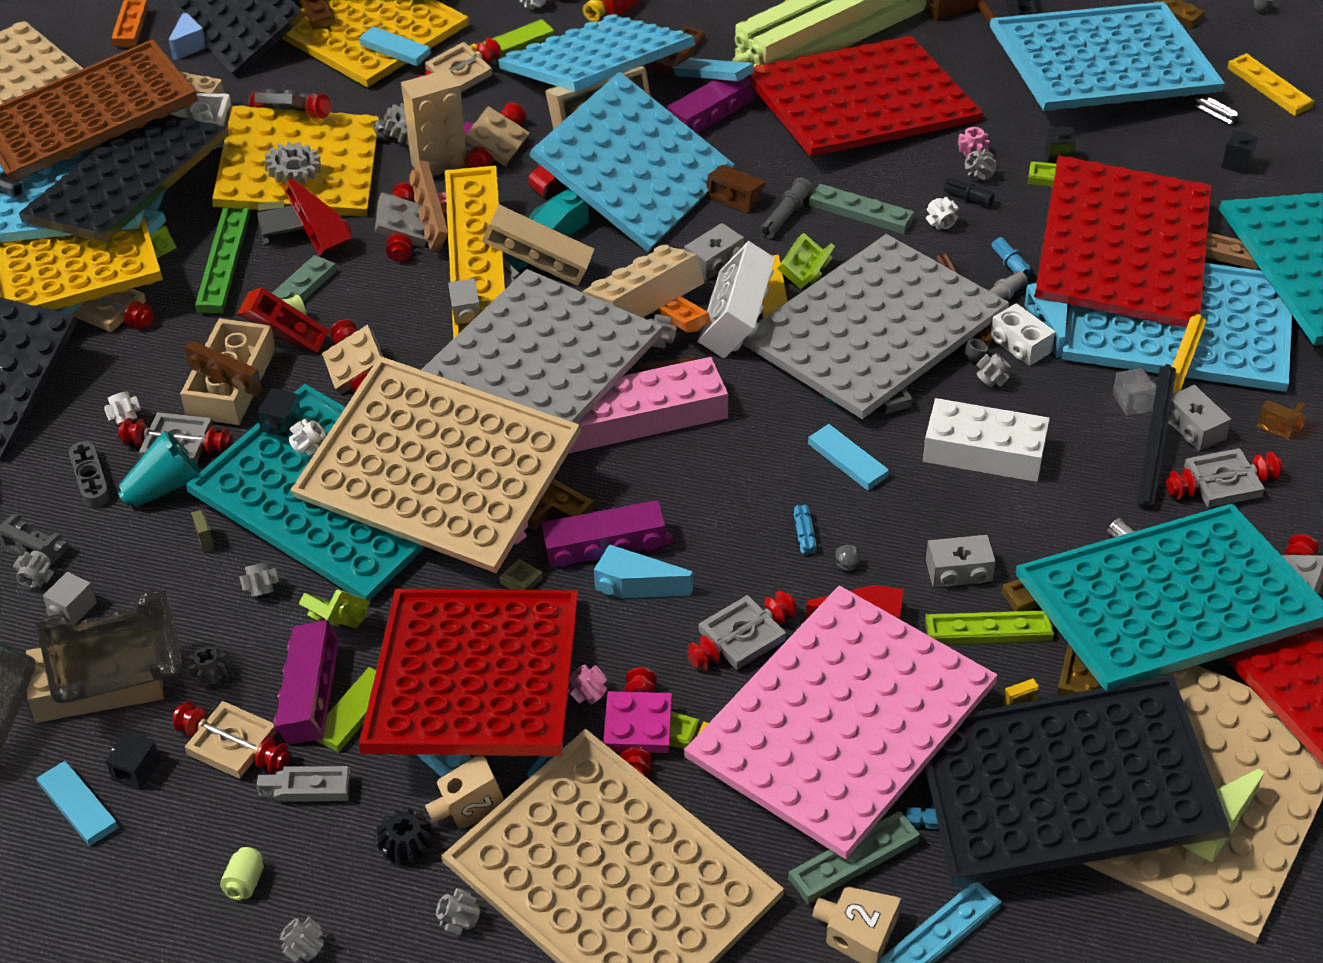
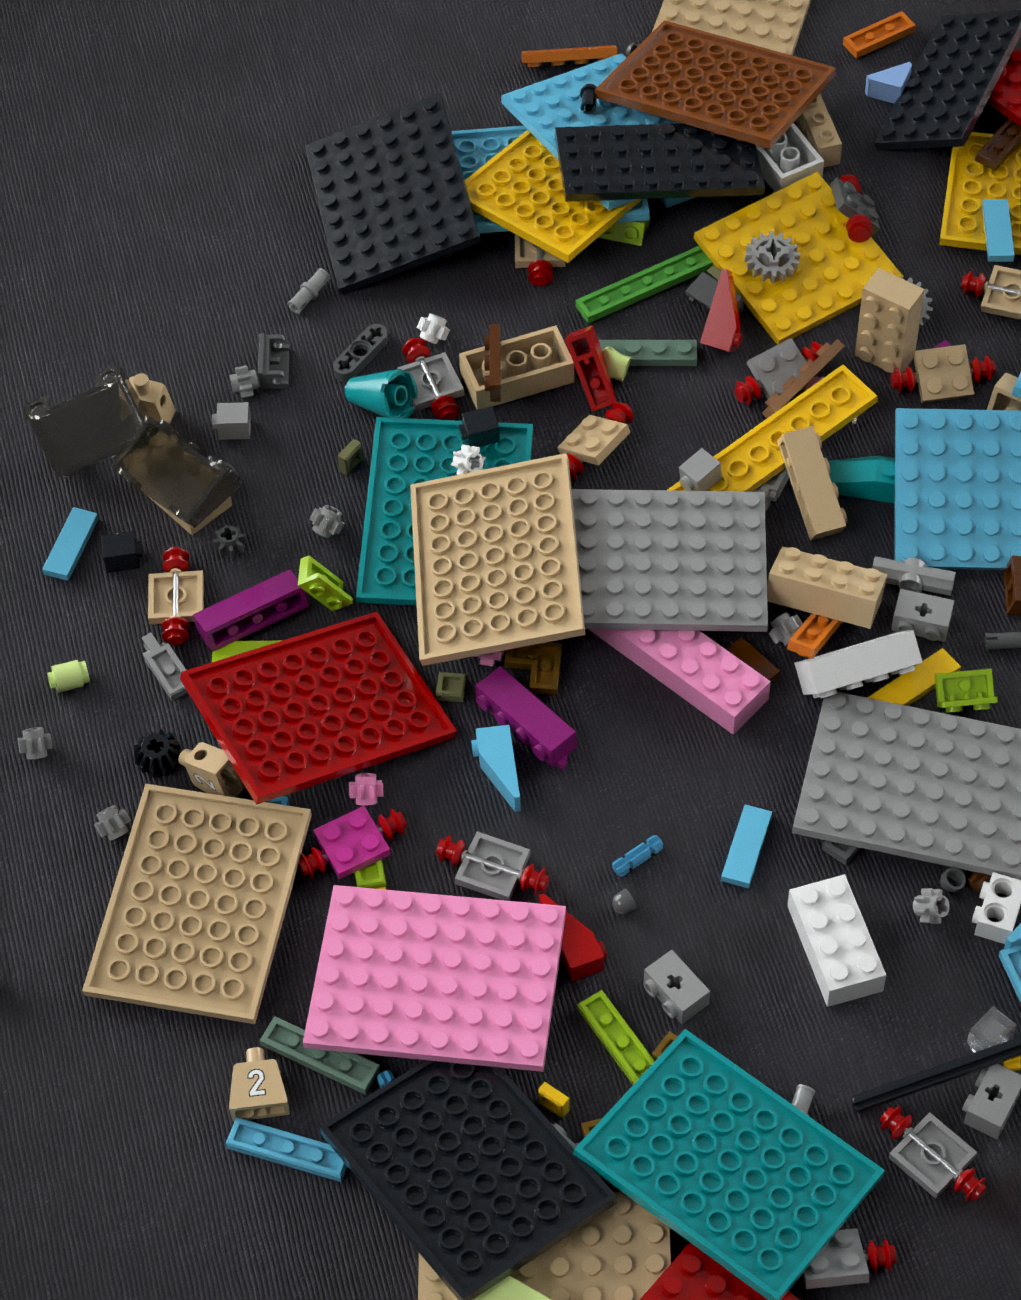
camera: 60 degrees right, 10 degrees up
(675, 236) = (915, 575): none -> light grey piece

